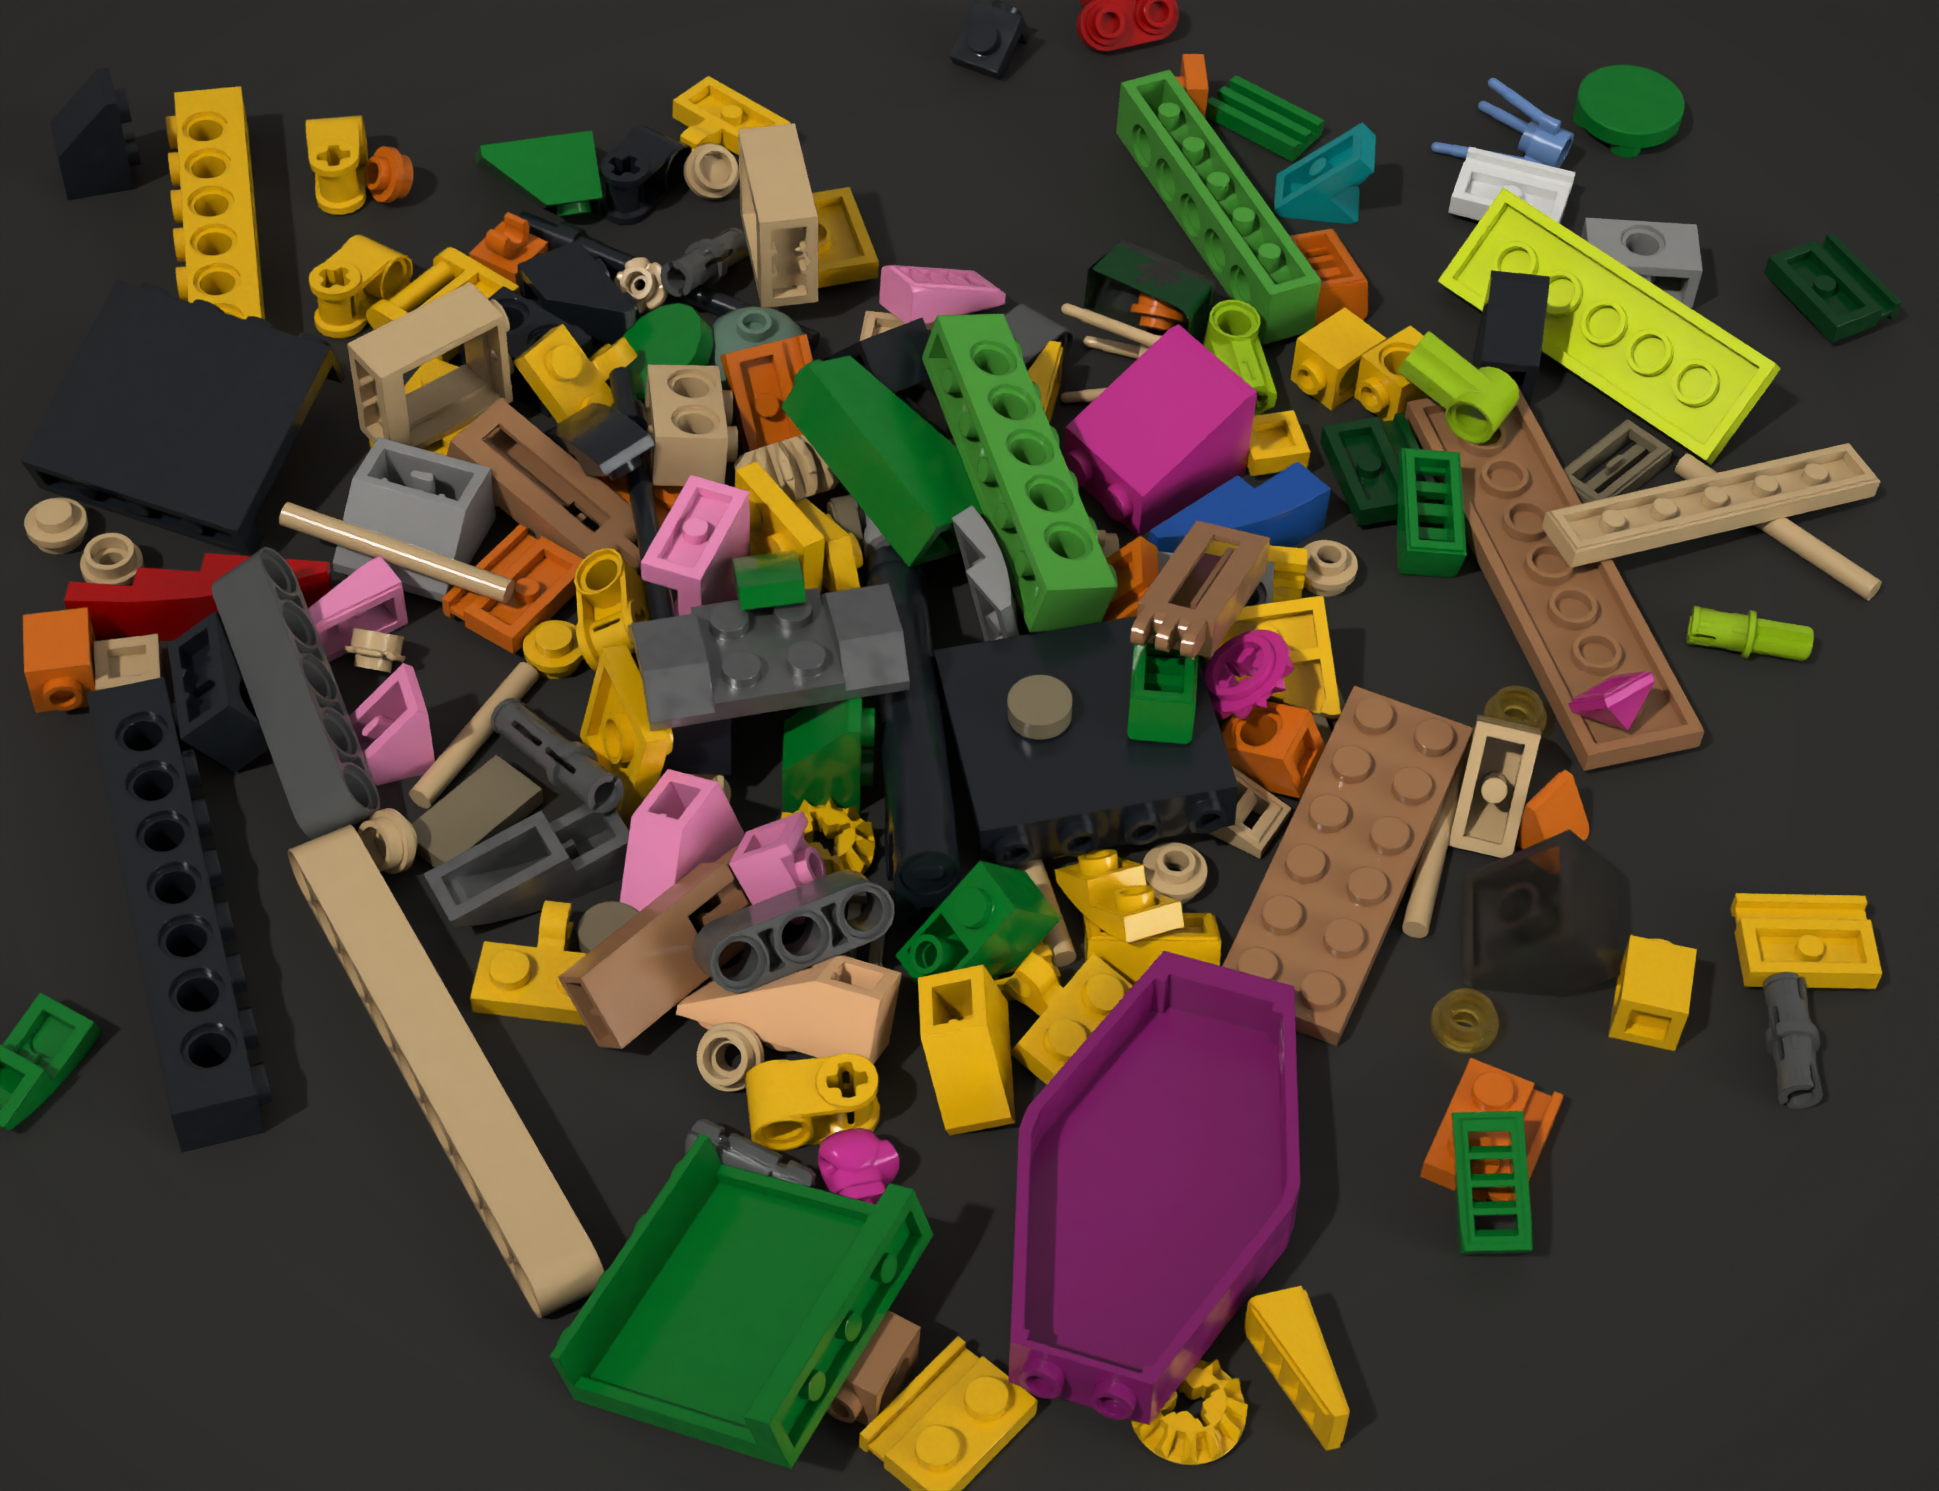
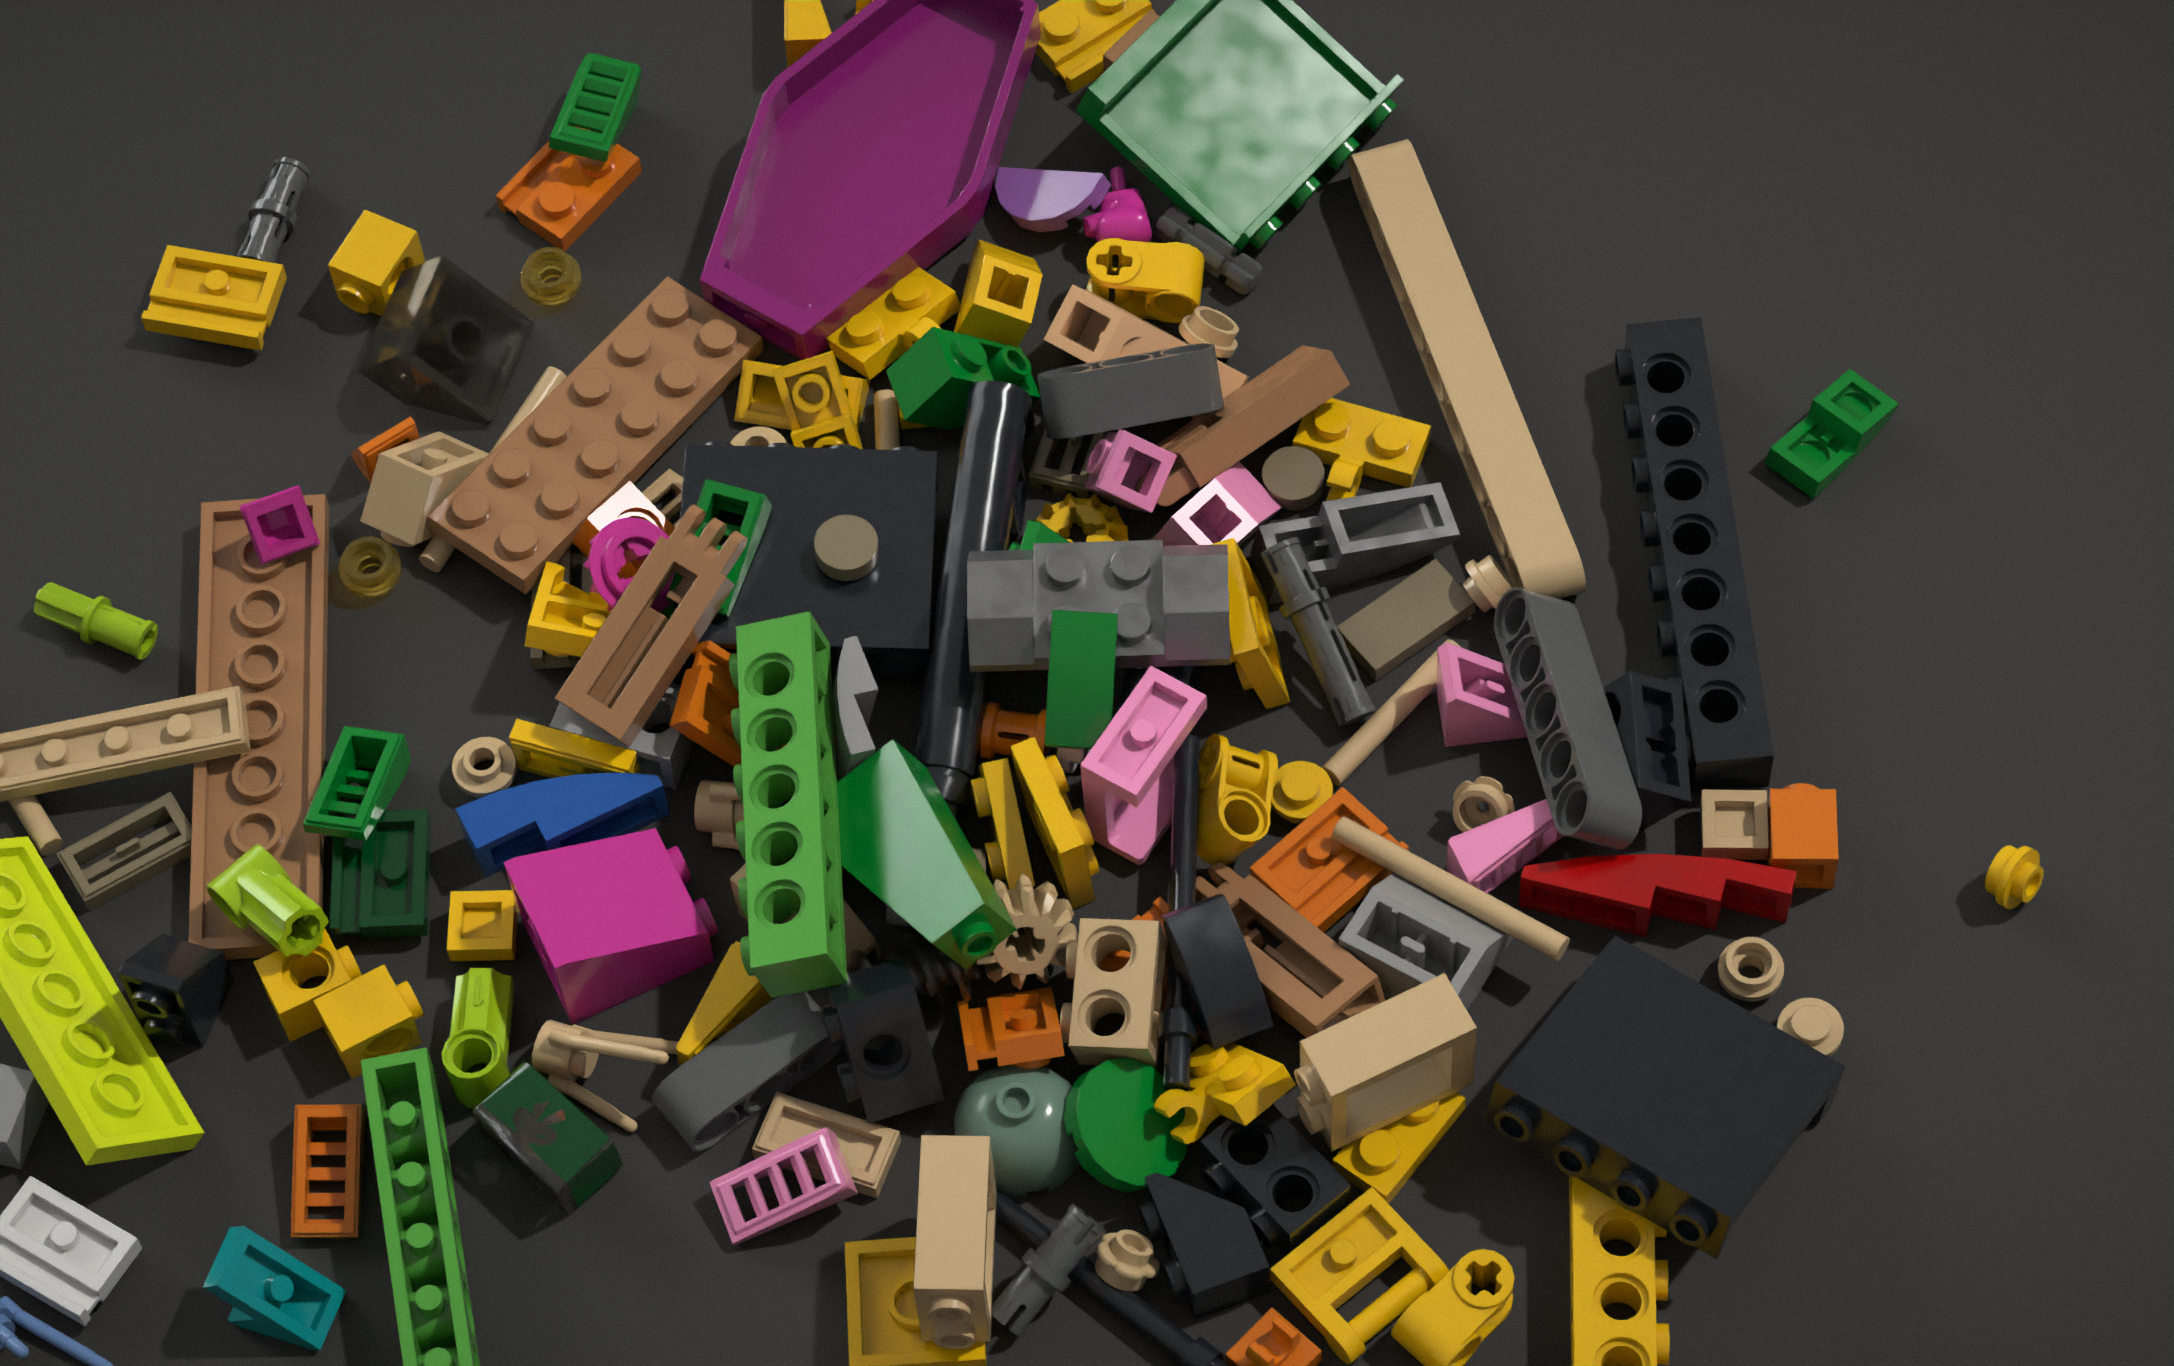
camera: 160 degrees left, 10 degrees up
(951, 1179) = (1048, 198): none -> medium lavender tile

